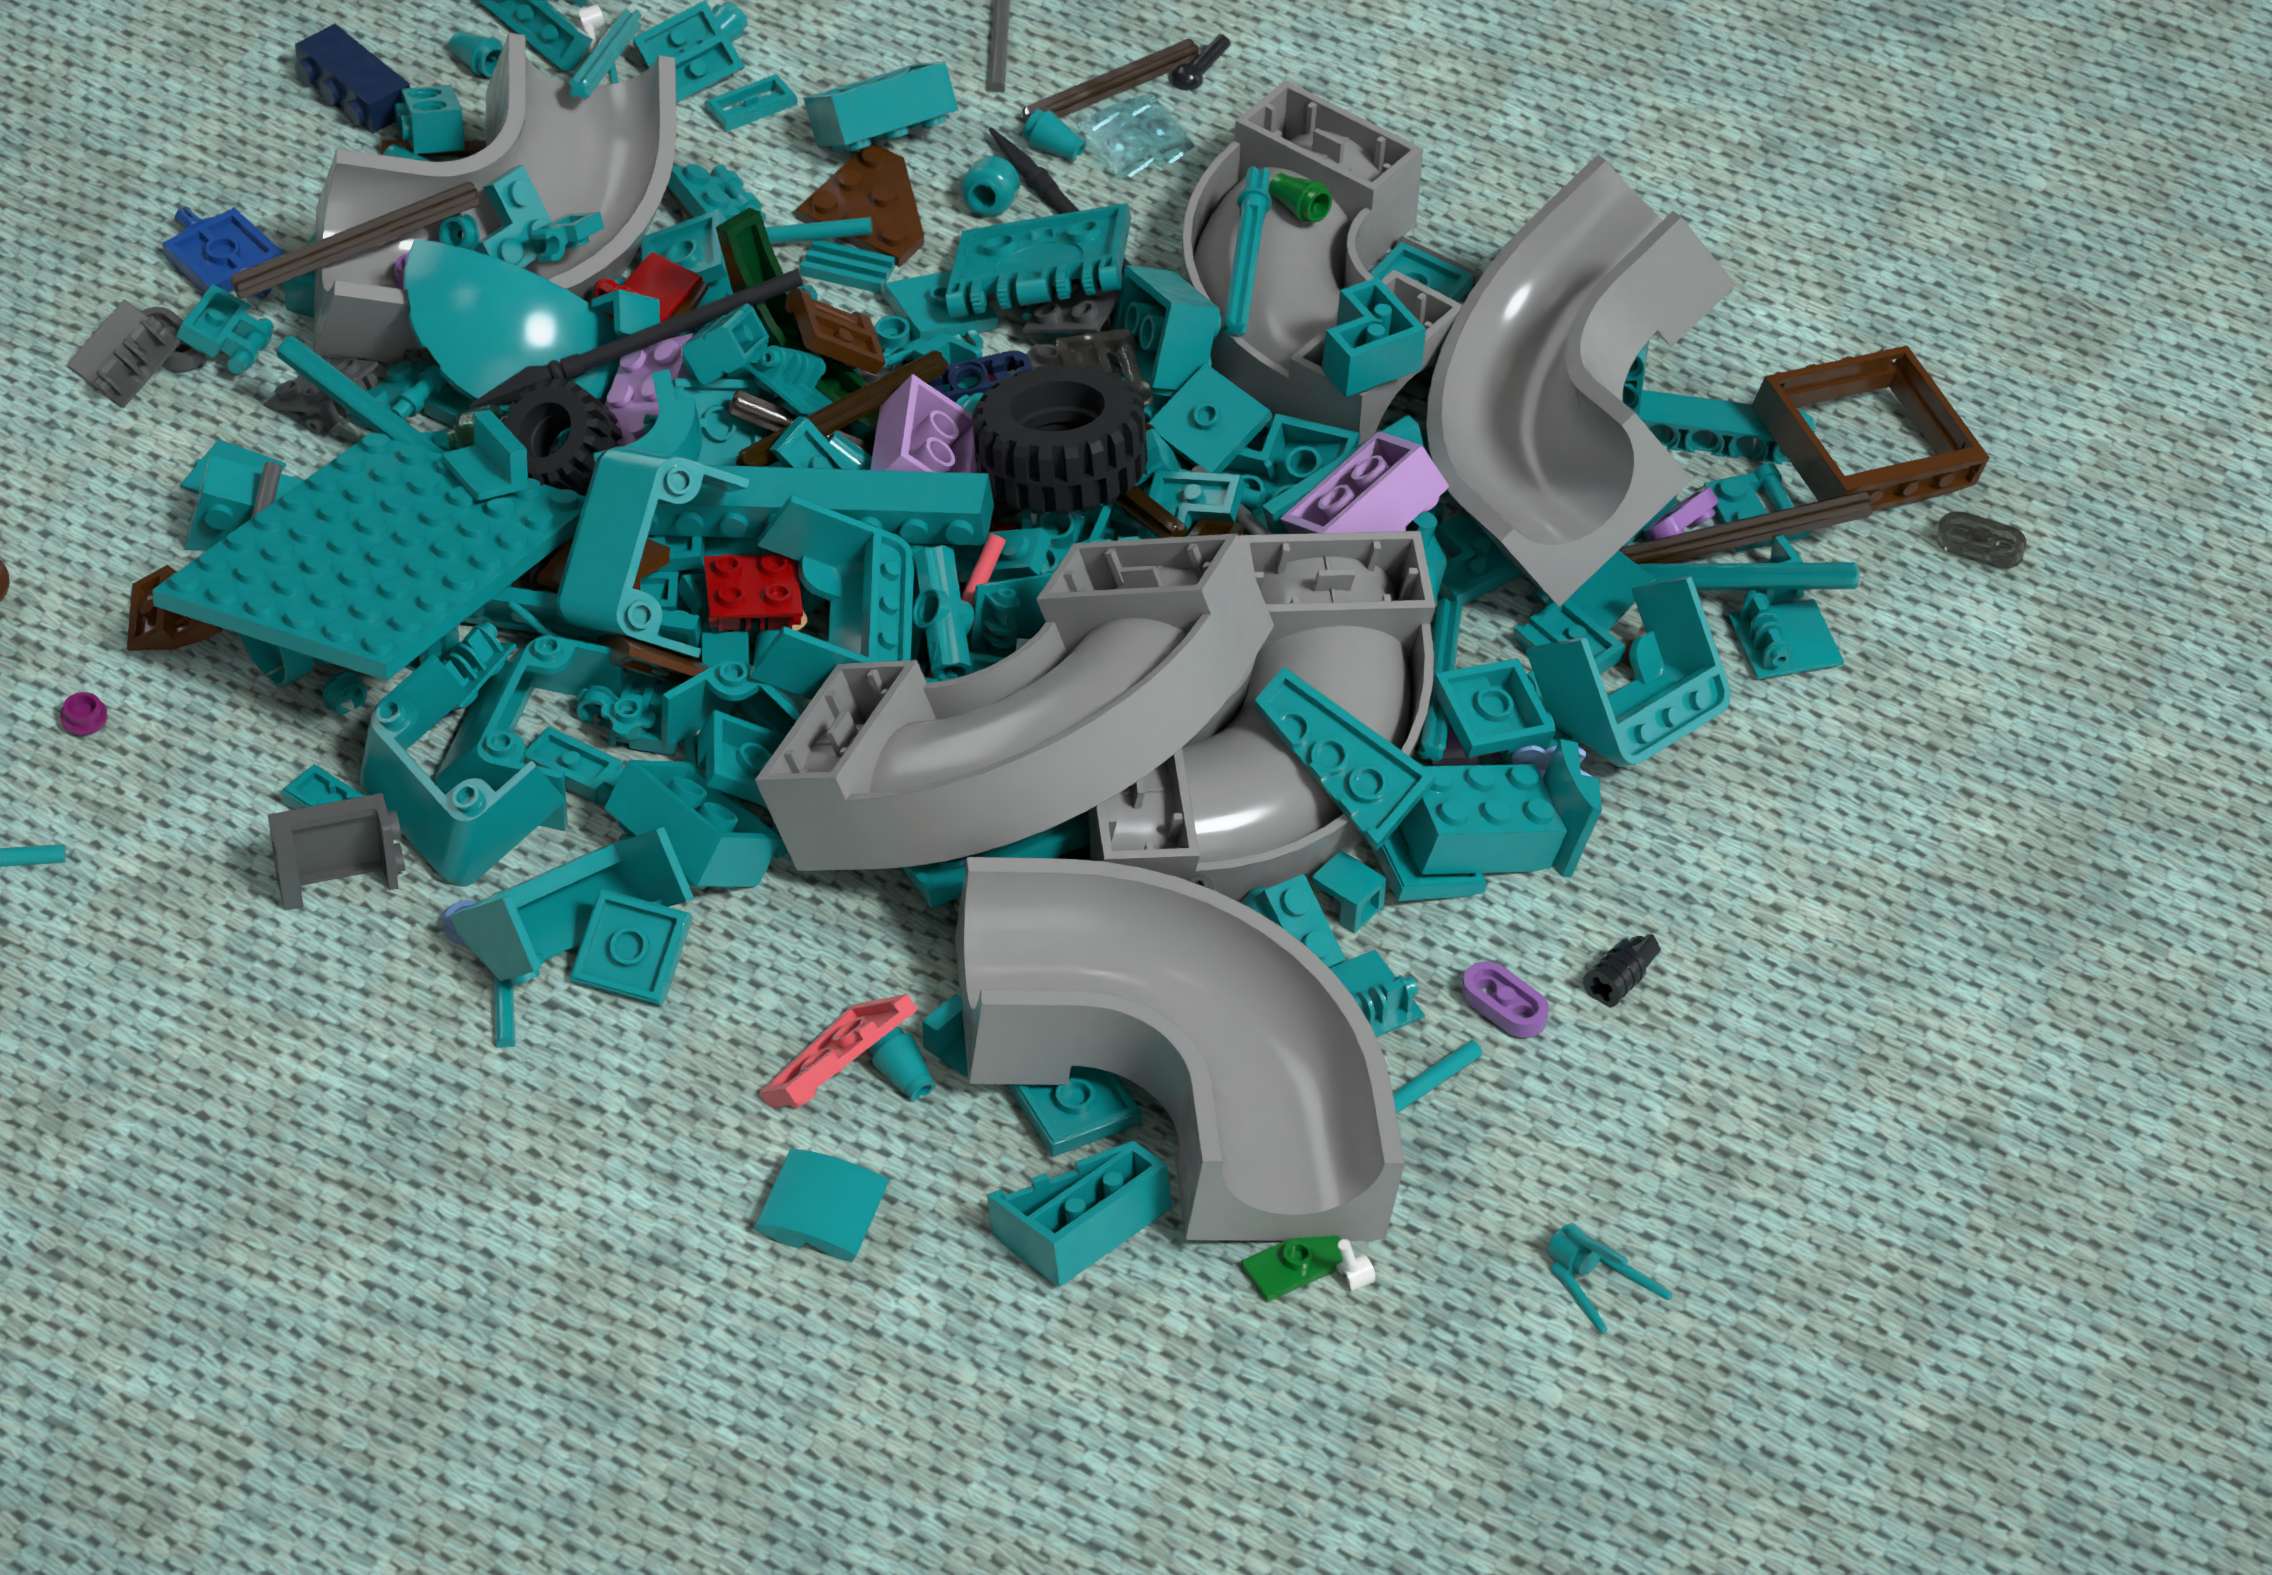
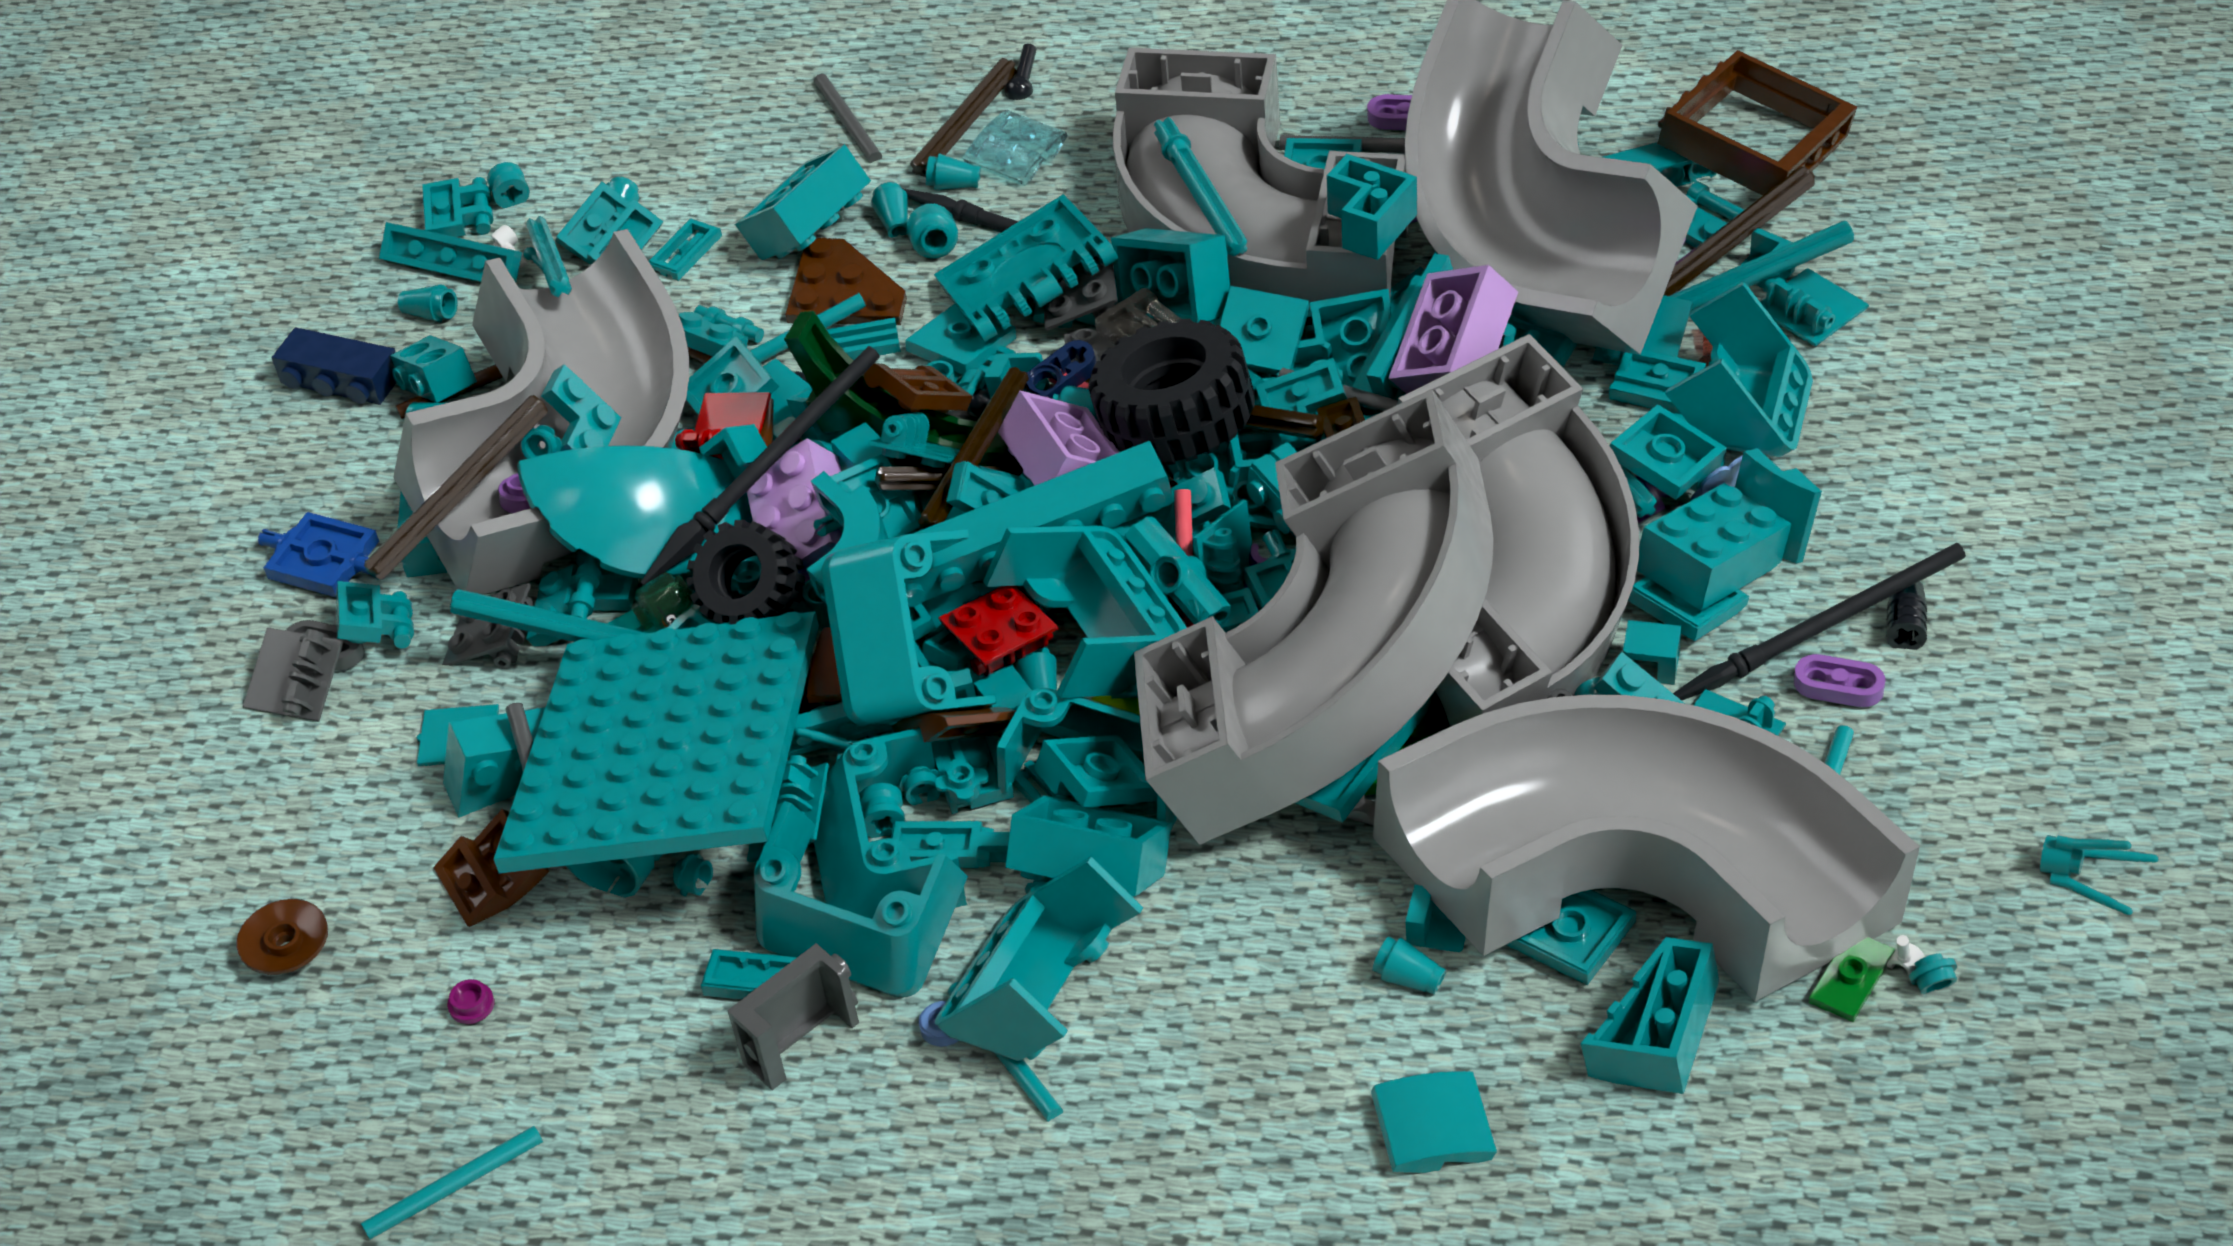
camera: 20 degrees left, 0 degrees up
(494, 463) = (705, 617): teal panel -> none
(545, 707) = (881, 808): none -> teal wheel
(567, 232) = (630, 405): teal plate -> none
(631, 947) = (1108, 977): teal plate -> none
(724, 344) = (846, 434): teal brick -> none
(835, 1048) = (1347, 977): coral wing -> none
(971, 142) = (891, 206): none -> teal cone
(1303, 197) = (1211, 128): green cone -> none
(1350, 761) = (1603, 540): teal wing -> none
(1367, 1293) = (1933, 973): none -> teal plate
(1445, 940) = (1754, 656): none -> black piece
(1981, 540) = (1892, 171): clear smoke plate -> none

